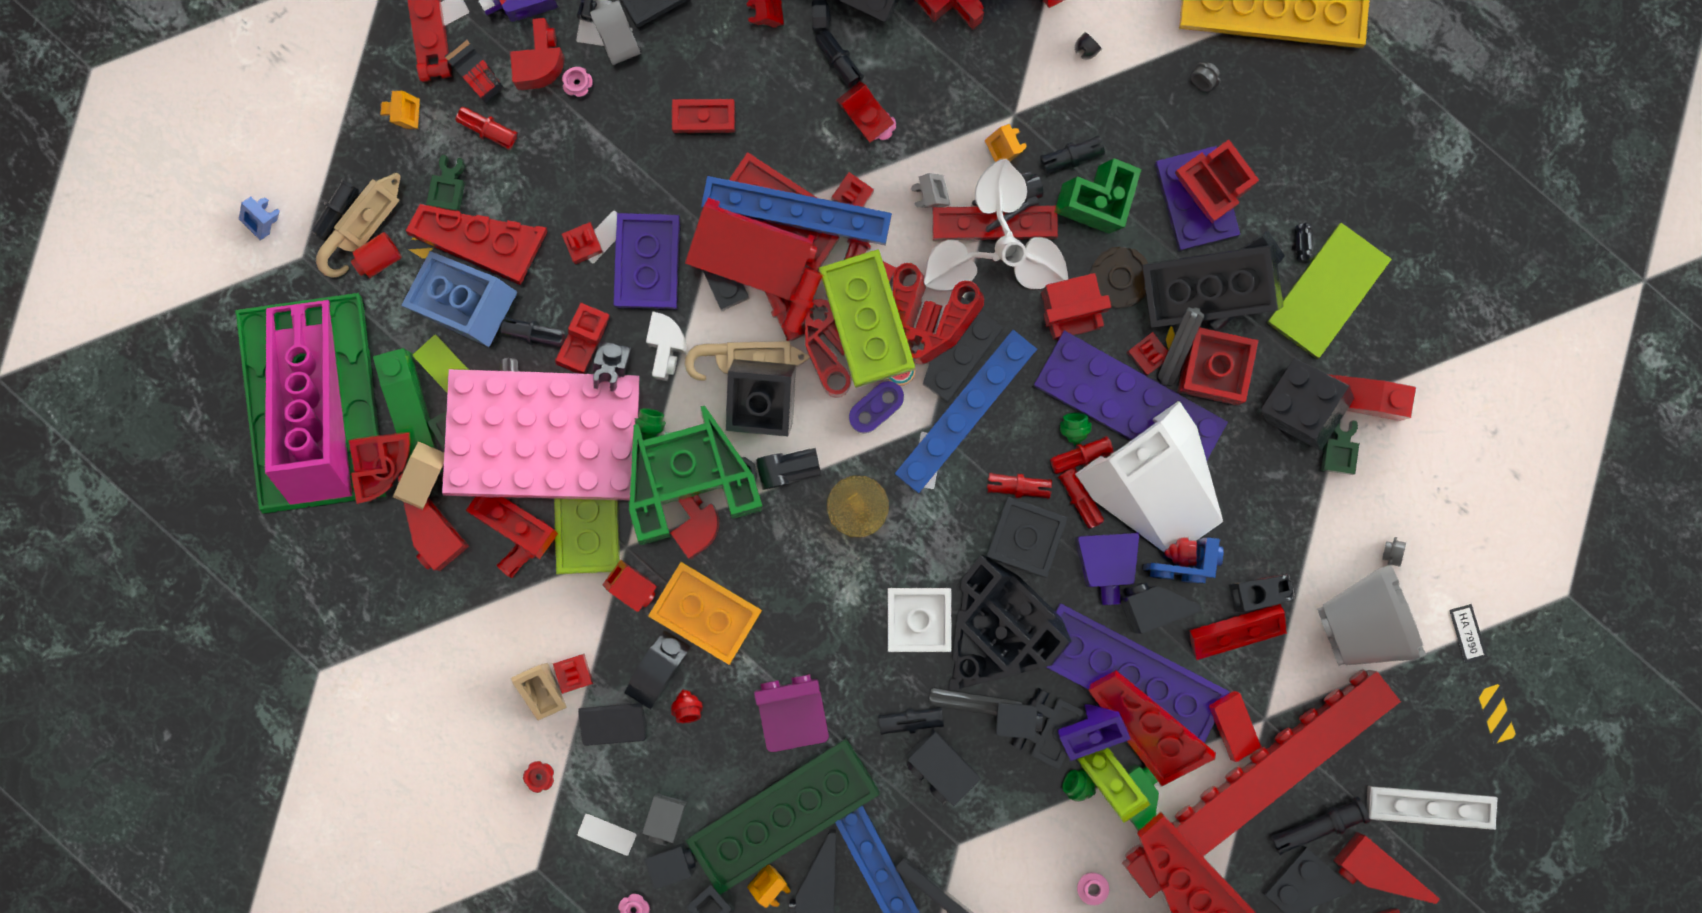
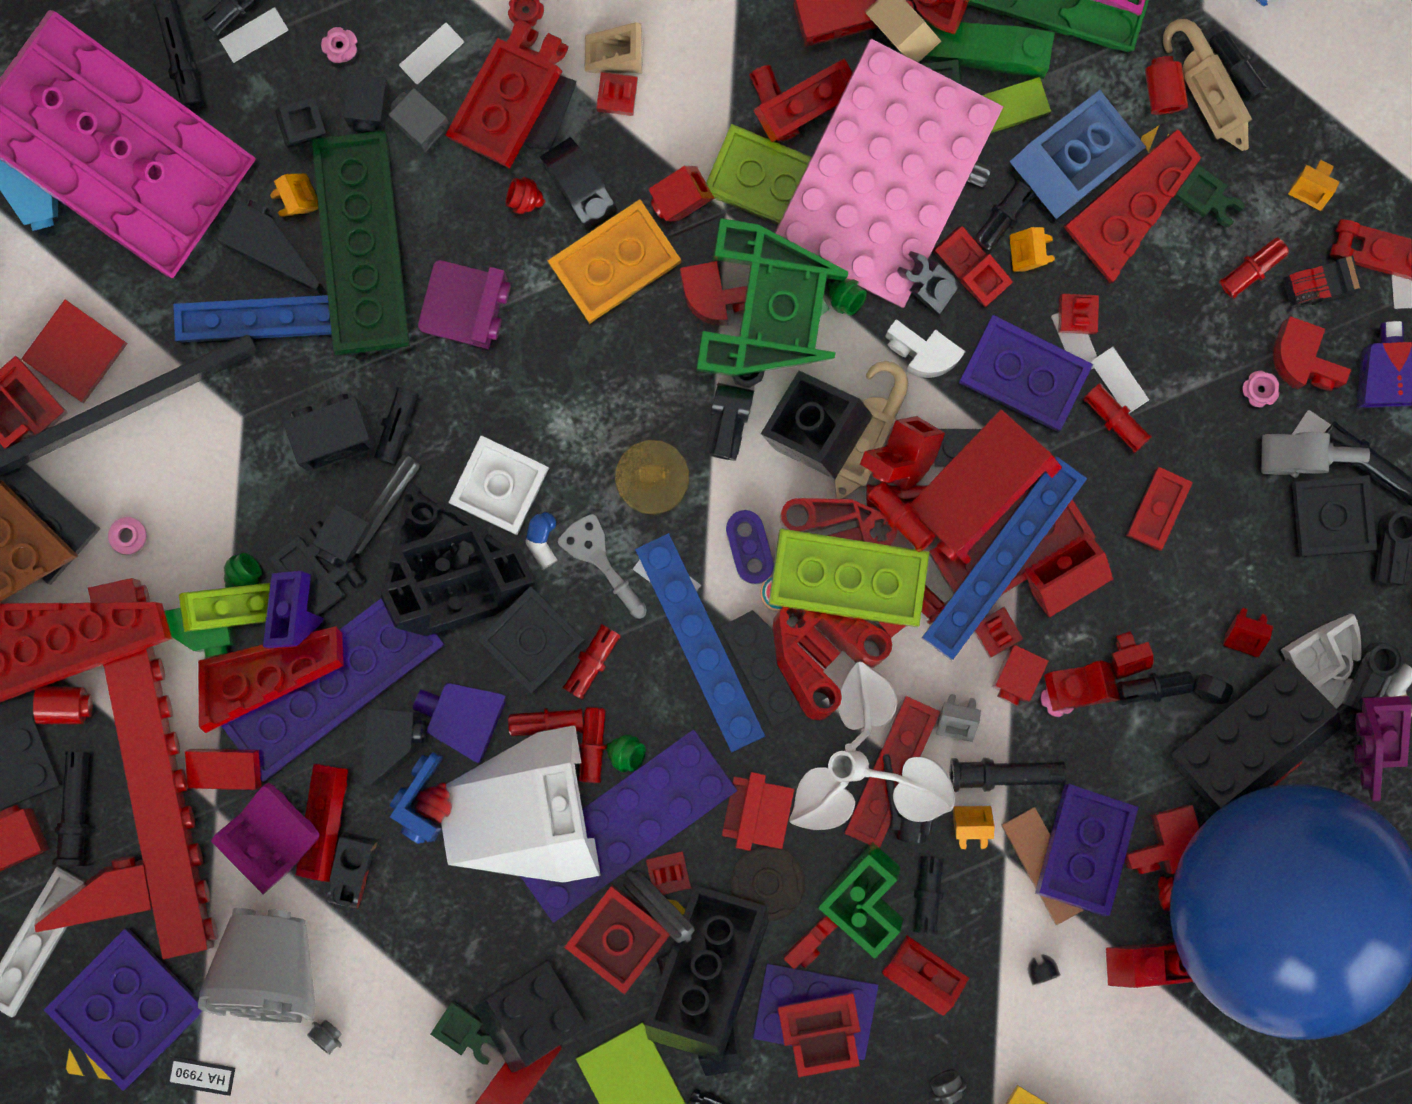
camera: 115 degrees right, 0 degrees up
(550, 301) = (1029, 249): none -> light orange tile
(613, 757) = (508, 95): none -> red tile
(619, 190) = (1119, 379): none -> white sticker
(649, 177) = (1117, 417): none -> red pin
(750, 321) = (908, 453): none -> red brick
(785, 158) = (1068, 574): none -> red brick
(825, 86) = (1131, 657): none -> red tile
(878, 161) = (1019, 675): none -> red brick
(937, 520) = (597, 556): none -> light grey piece
(944, 571) = (537, 538): none -> arm
(962, 151) = (987, 774): none -> black pin
(984, 53) = (1086, 850): none -> dark purple plate
(1009, 80) = (1030, 842): none -> nougat tile
(1132, 130) = (925, 976): none -> red slope
(1154, 226) = (805, 950): none -> red plate
(1246, 874) = (61, 705): none -> red brick
(1272, 667) = (266, 838): none -> magenta bracket
(1373, 769) = (107, 894): none -> red slope
(1448, 713) = (125, 1009): none -> dark purple plate

